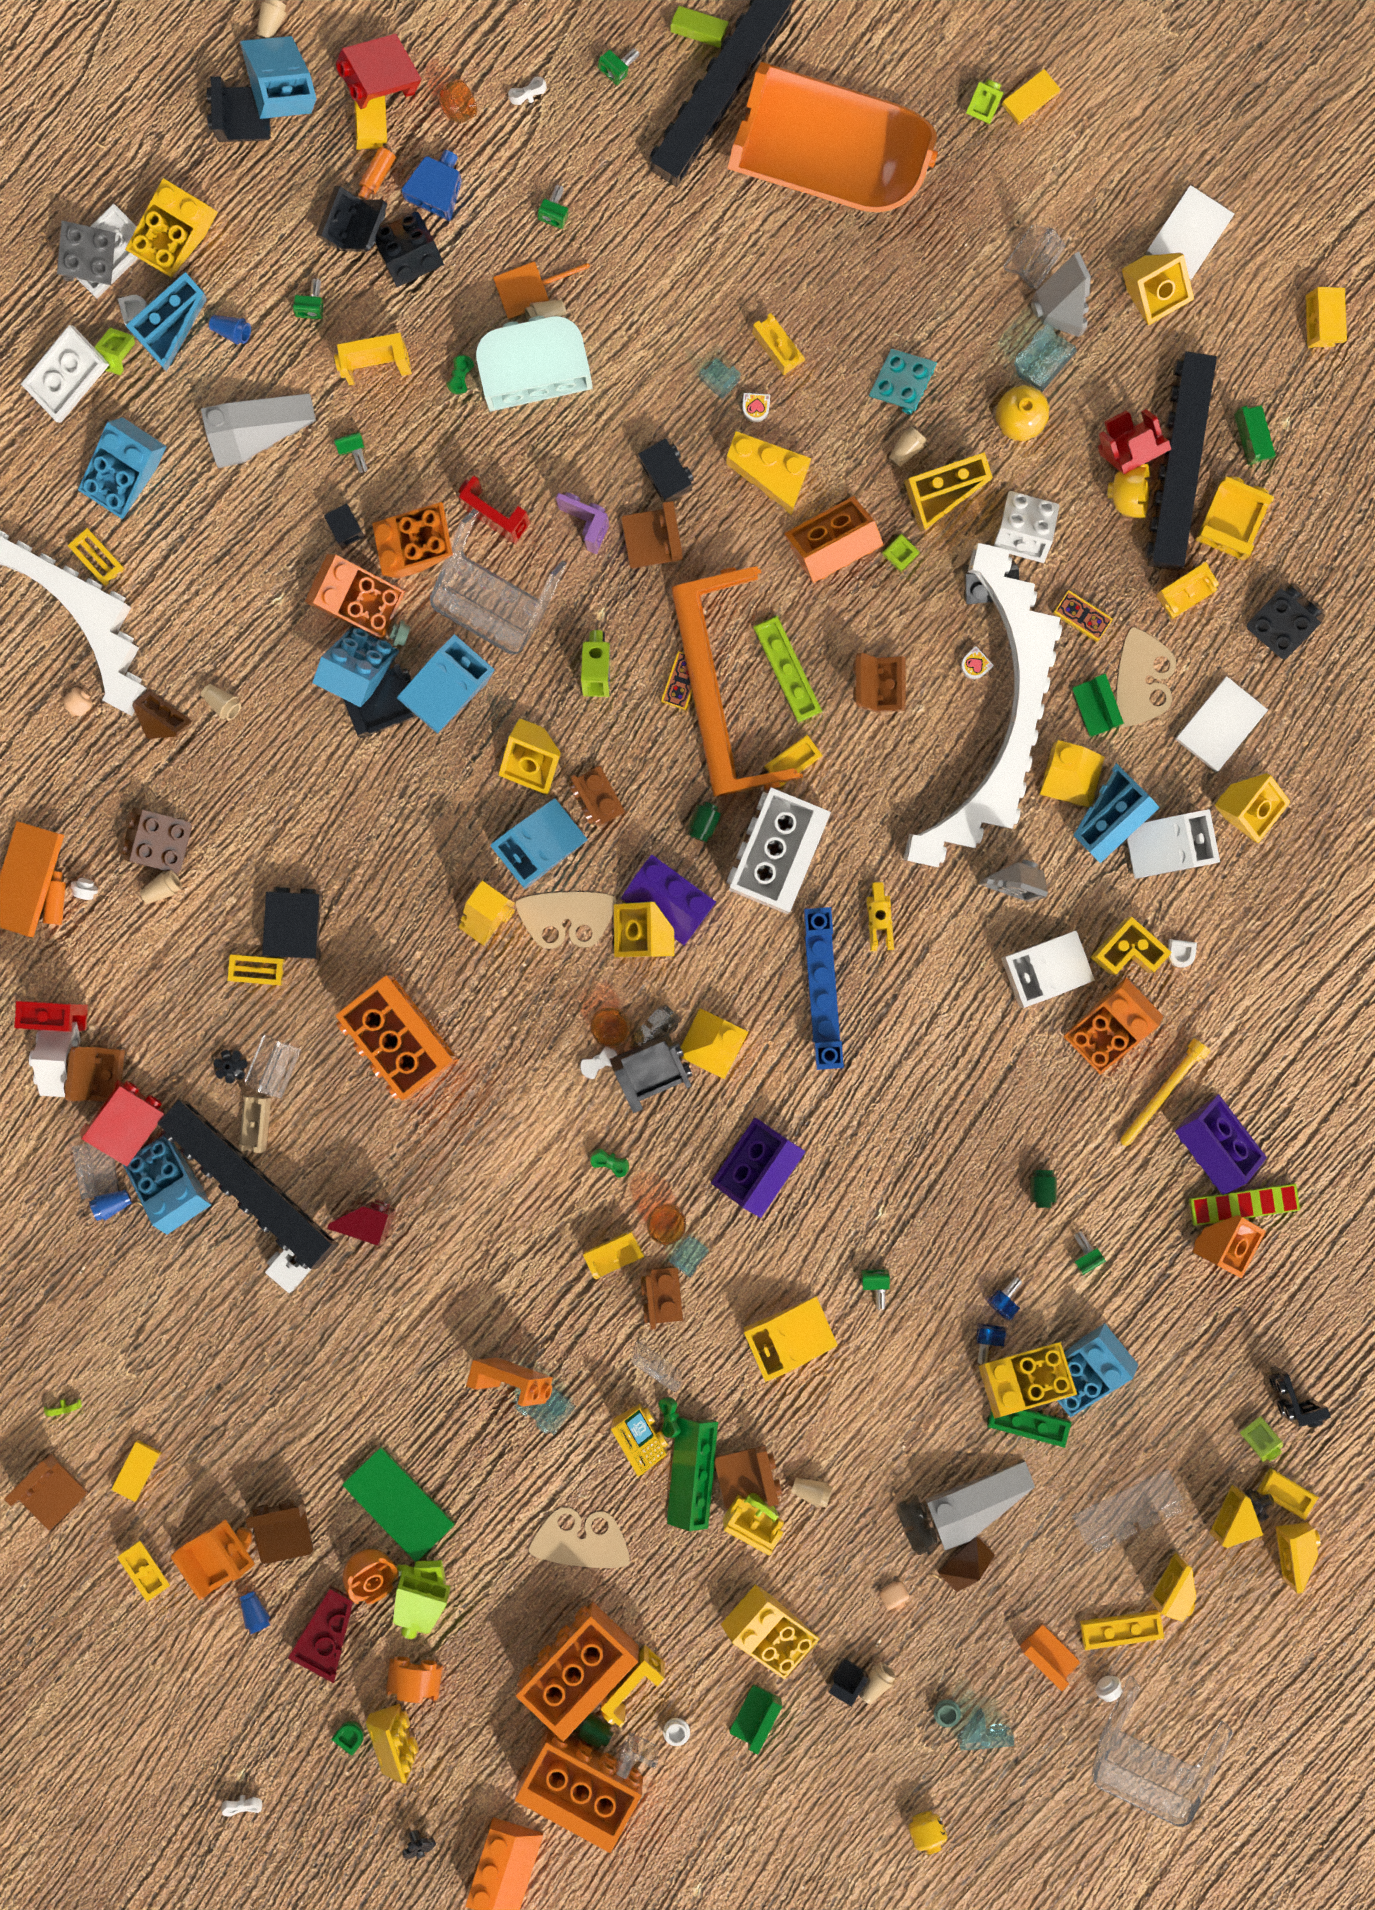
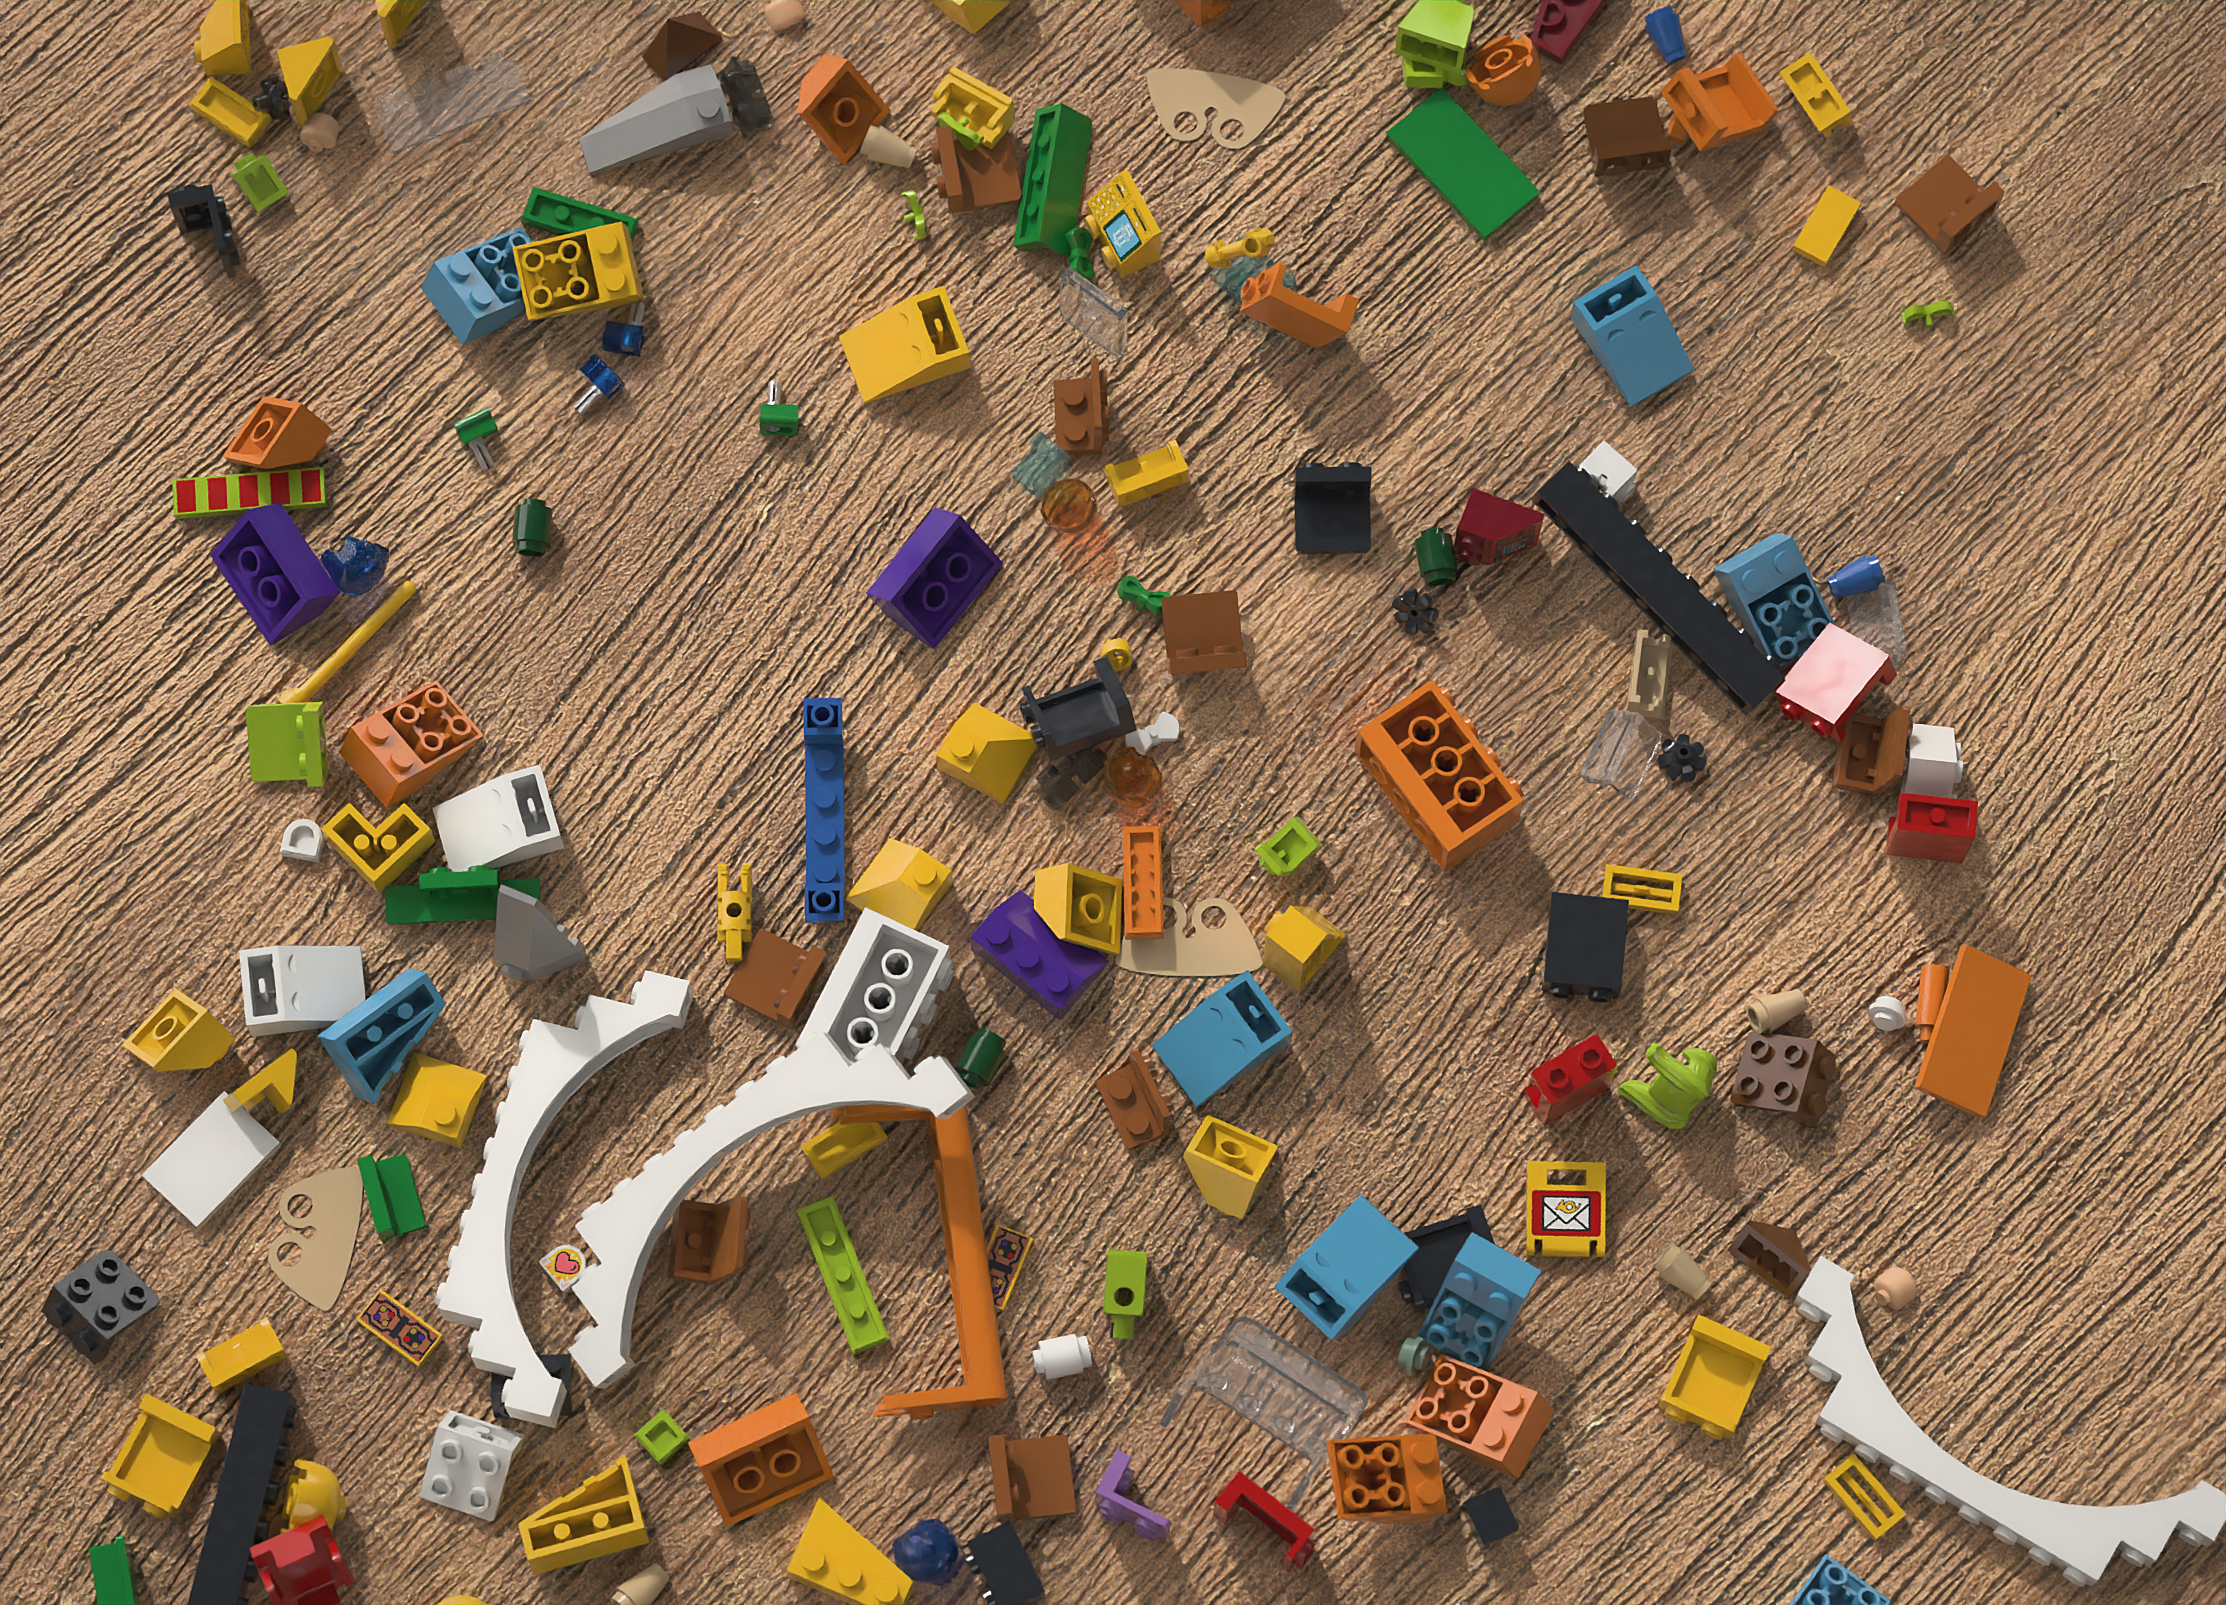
camera: 175 degrees left, 15 degrees down
(199, 629) = (1713, 1378): none -> yellow panel
(226, 825) = (1676, 1087): none -> lime hair
(272, 1375) = (1631, 336): none -> dark azure slope
(298, 823) = (1571, 1079): none -> red panel
(301, 735) = (1565, 1214): none -> container
(406, 1202) = (1436, 557): none -> dark green brick
(418, 1161) = (1415, 611): none -> black plant
(480, 1233) = (1332, 509): none -> black bracket
(500, 982) = (1288, 848): none -> lime bracket
(543, 1423) = (1255, 244): none -> yellow bar
(566, 1133) = (1203, 632): none -> dark orange bracket
(599, 953) = (1143, 882): none -> orange plate
(626, 1119) = (1117, 645): none -> yellow hinge
(636, 619) = (1062, 1356): none -> white brick
(718, 482) = (929, 1553): none -> clear blue hair
(768, 941) = (901, 884): none -> yellow slope
(787, 1442) = (917, 214): none -> lime piece
(817, 782) = (631, 1221): none -> white arch
(848, 871) = (777, 978): none -> dark orange bracket
(850, 1521) = (839, 105): none -> orange slope
(1068, 914) = (452, 896): none -> green bracket
(1164, 1149) = (356, 566): none -> clear blue hair
(1184, 781) = (274, 1081): none -> yellow slope
(1199, 1018) = (287, 742): none -> lime bracket
(1221, 1482) = (319, 132): none -> light nougat piece

